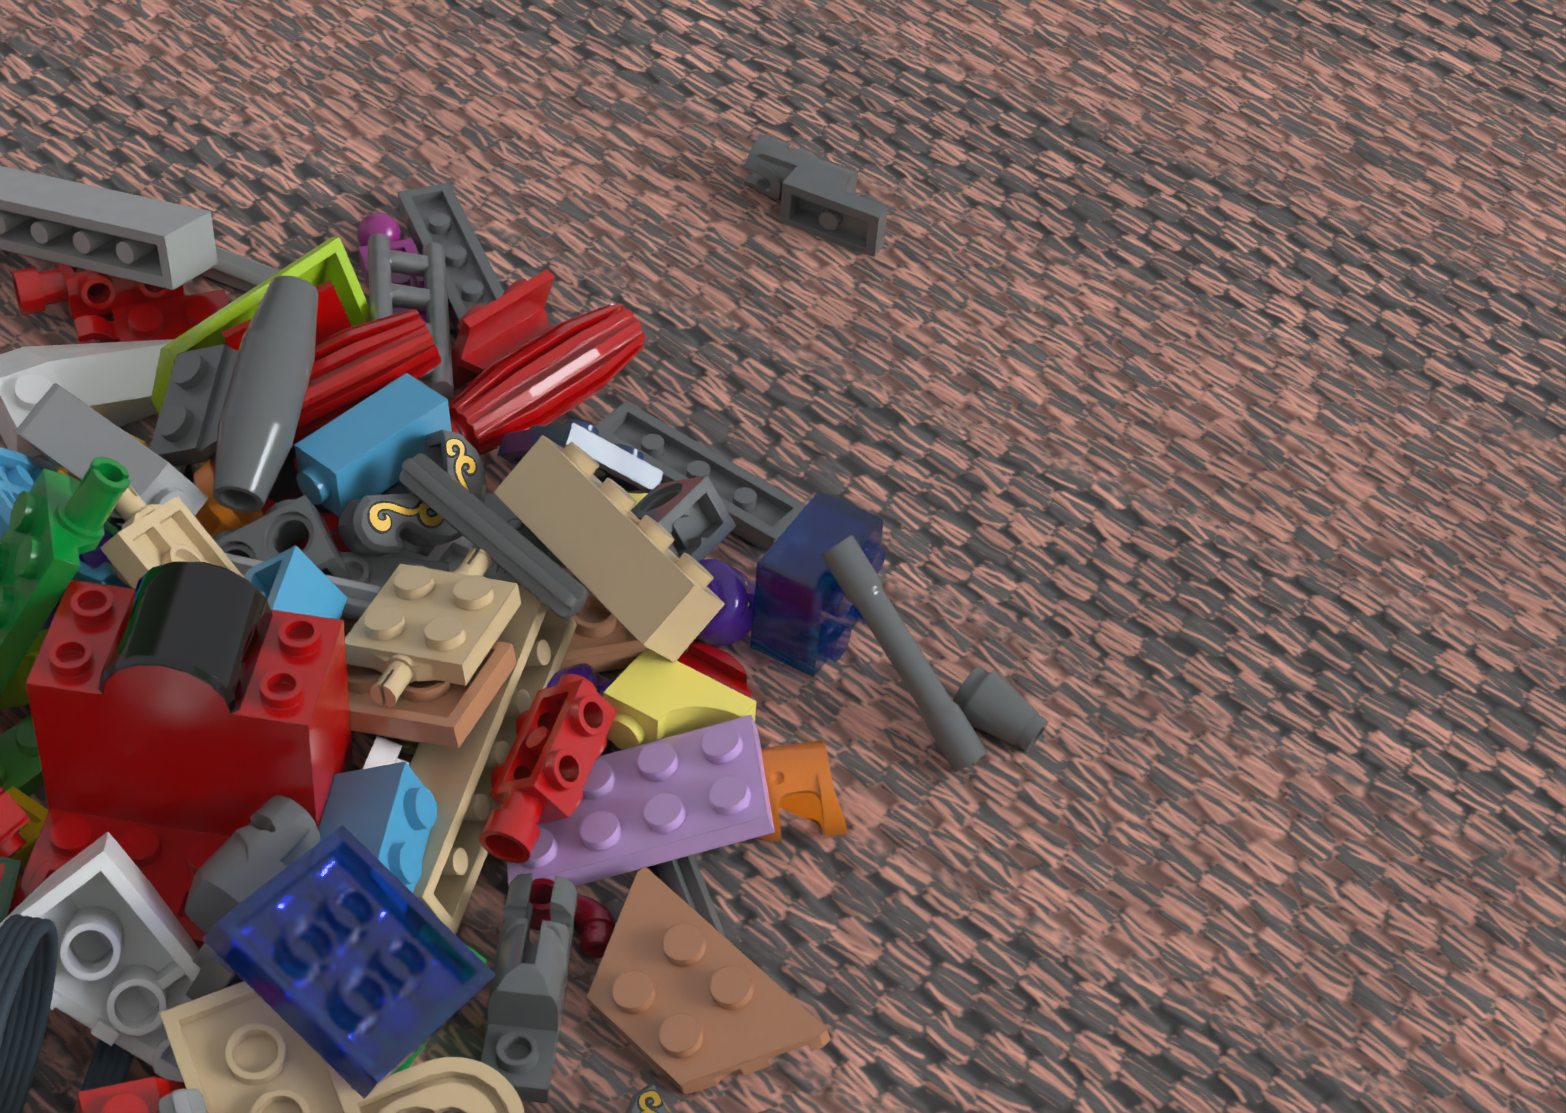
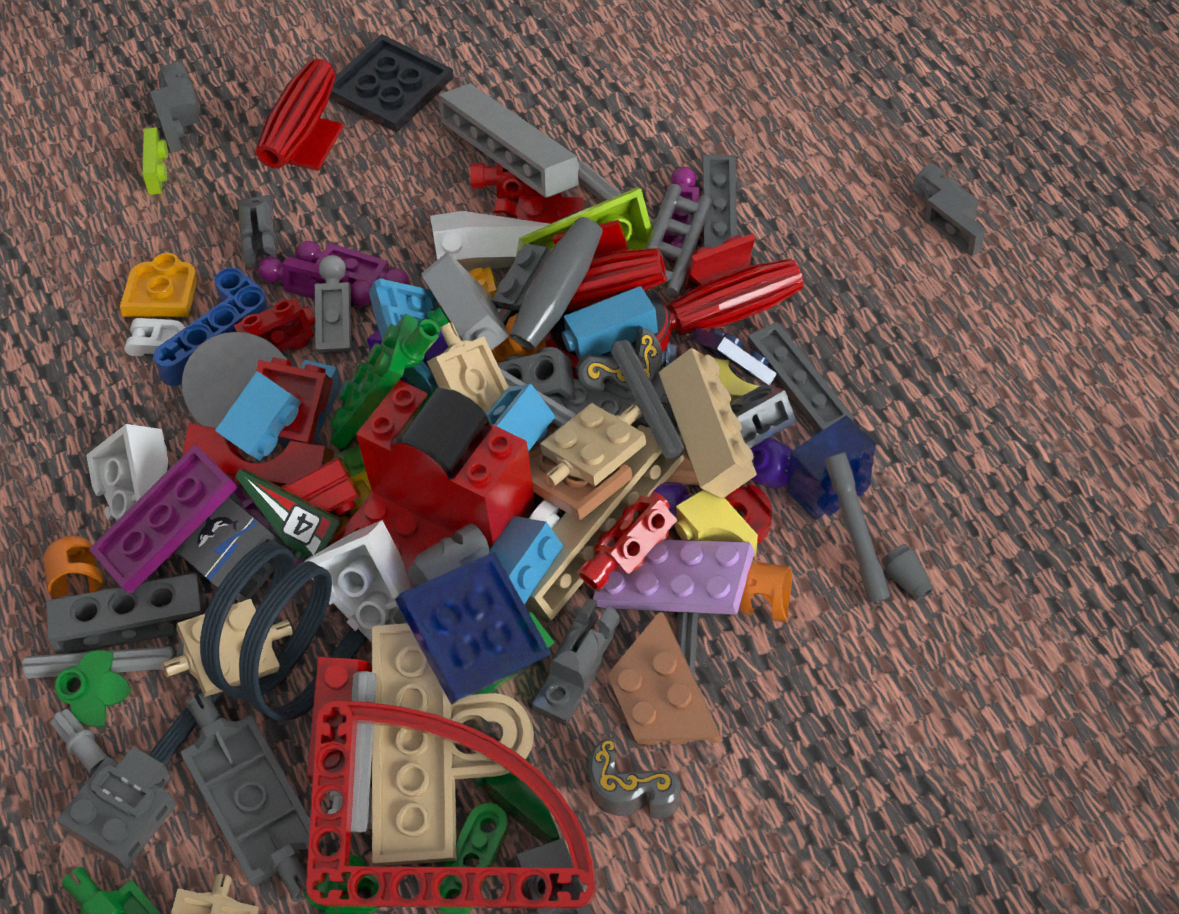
camera: 30 degrees right, 10 degrees up
(591, 918) = (628, 627): dark red arm -> none

